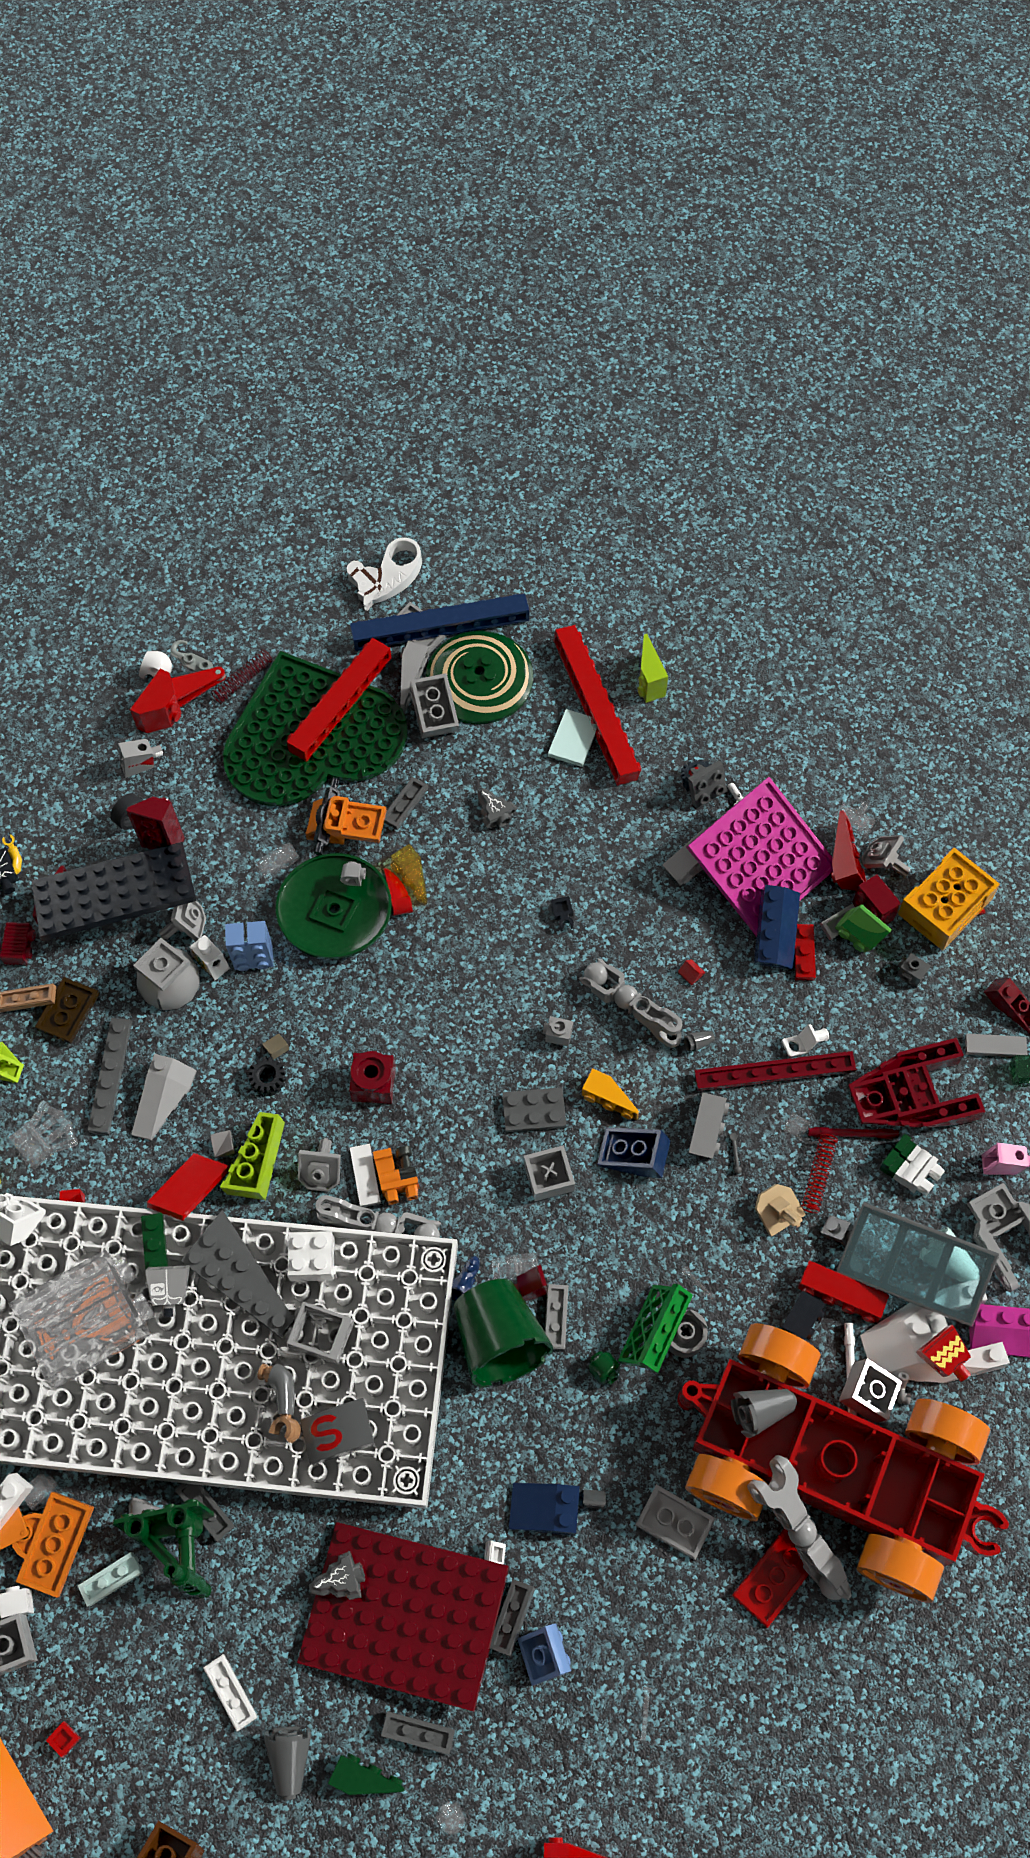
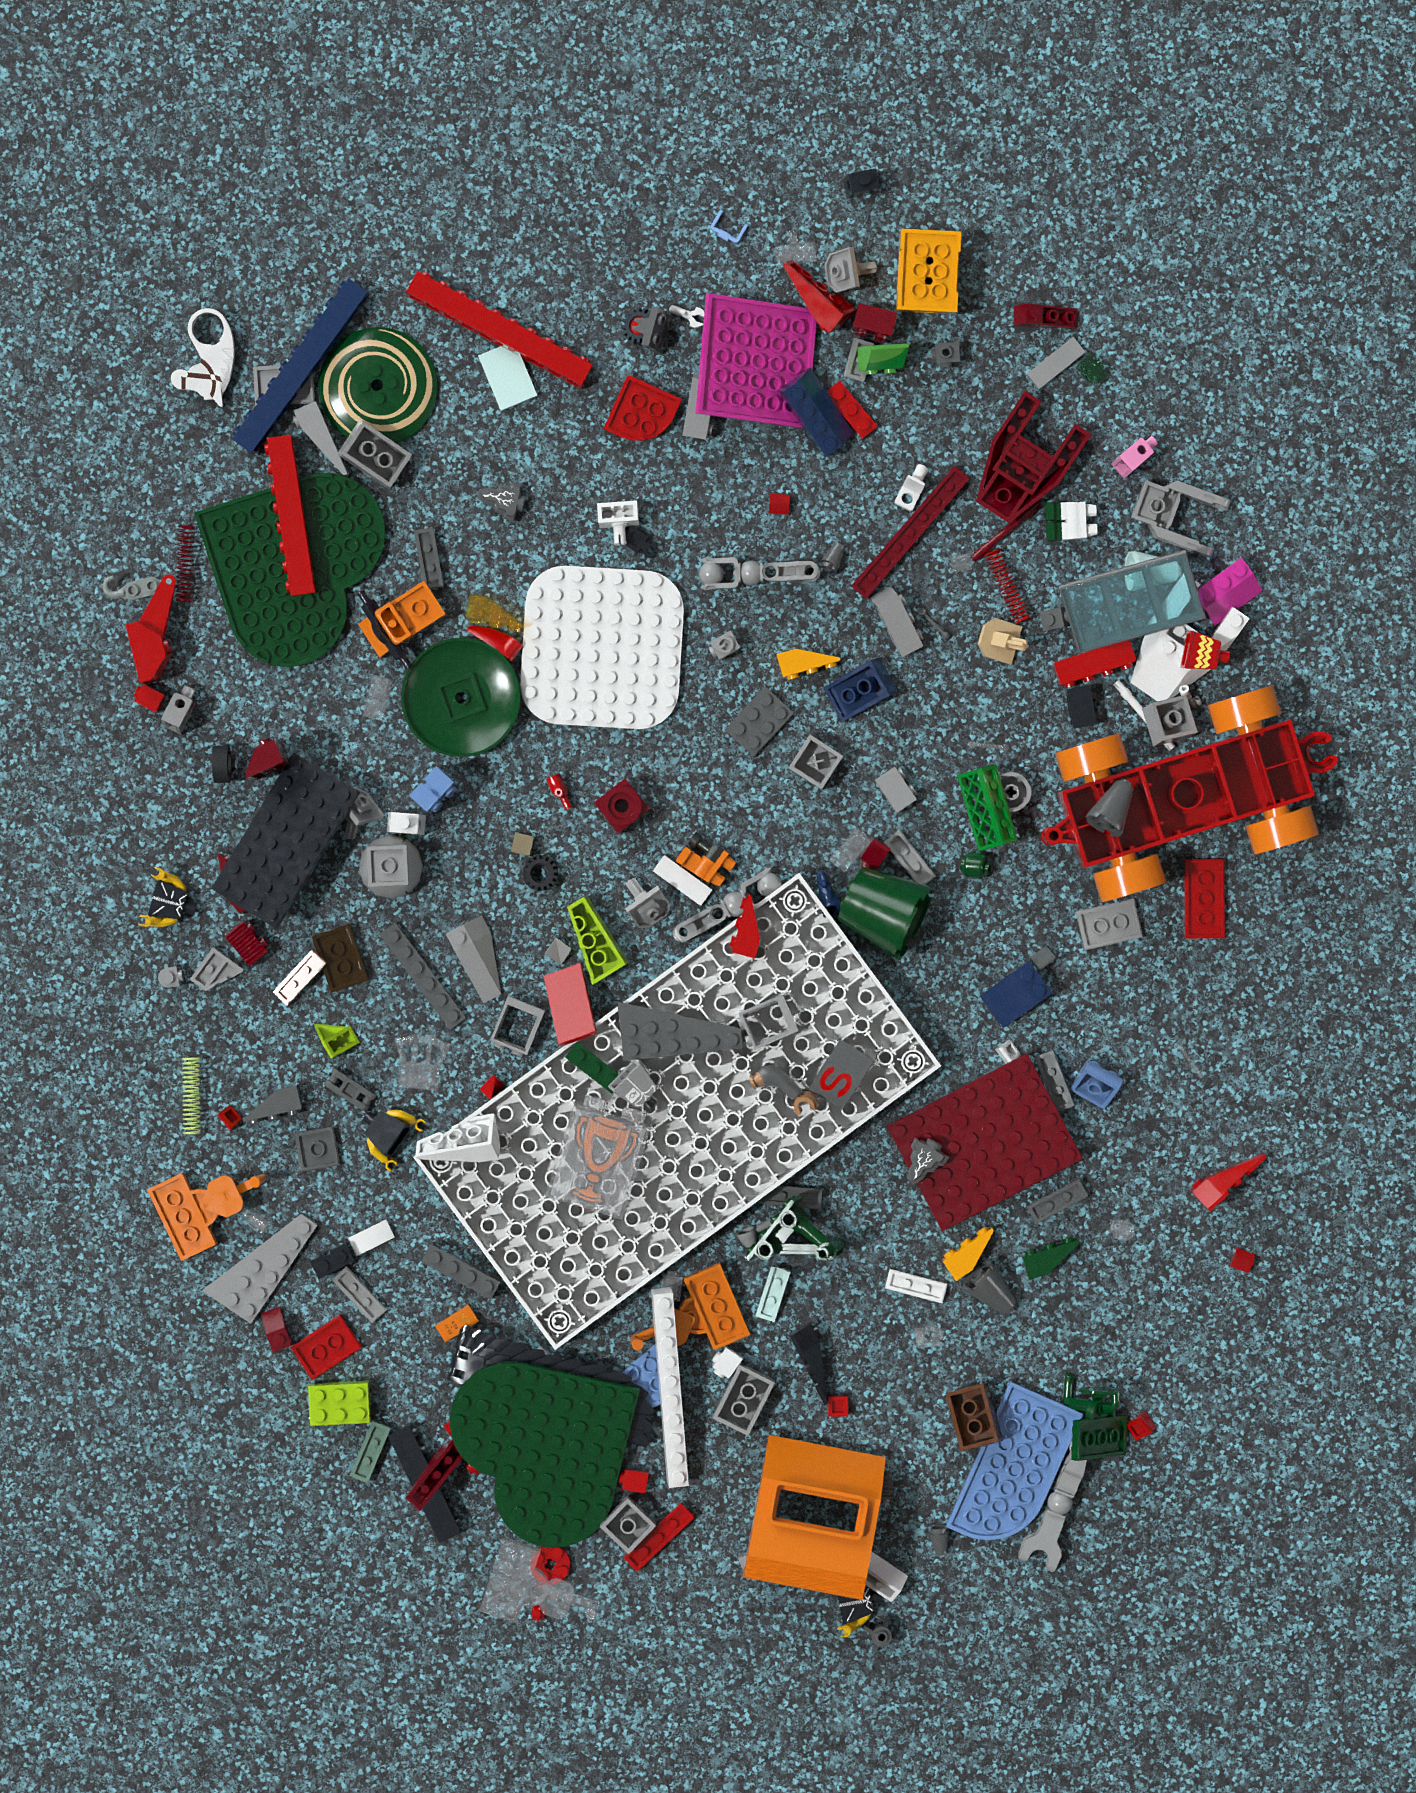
camera: 40 degrees left, 25 degrees up
(90, 1656) = (808, 1347): none -> black wedge
(128, 731) = (149, 698): none -> red brick
(129, 1156) = (516, 1049): none -> light grey window
(153, 662) = (107, 619): white helmet -> none
(188, 1746) = (920, 1339): none -> clear brick
(293, 1707) = (965, 1258): none -> light orange slope
(311, 1256) = (712, 977): white brick -> none
(340, 1028) = (559, 789): none -> red piece
(352, 874) = (453, 660): light grey plate -> none
(369, 1249) = (747, 936): none -> red slope
(467, 962) = (602, 647): none -> white plate
(564, 880) = (618, 516): none -> white brick
(593, 1251) = (895, 789): none -> light grey brick
(647, 830) = (641, 411): none -> red plate
(653, 676) = (522, 264): lime slope -> none
(790, 1511) = (1176, 857): light grey piece -> none
(812, 770) = (723, 234): none -> light blue piece
(947, 810) = (862, 183): none -> black torso

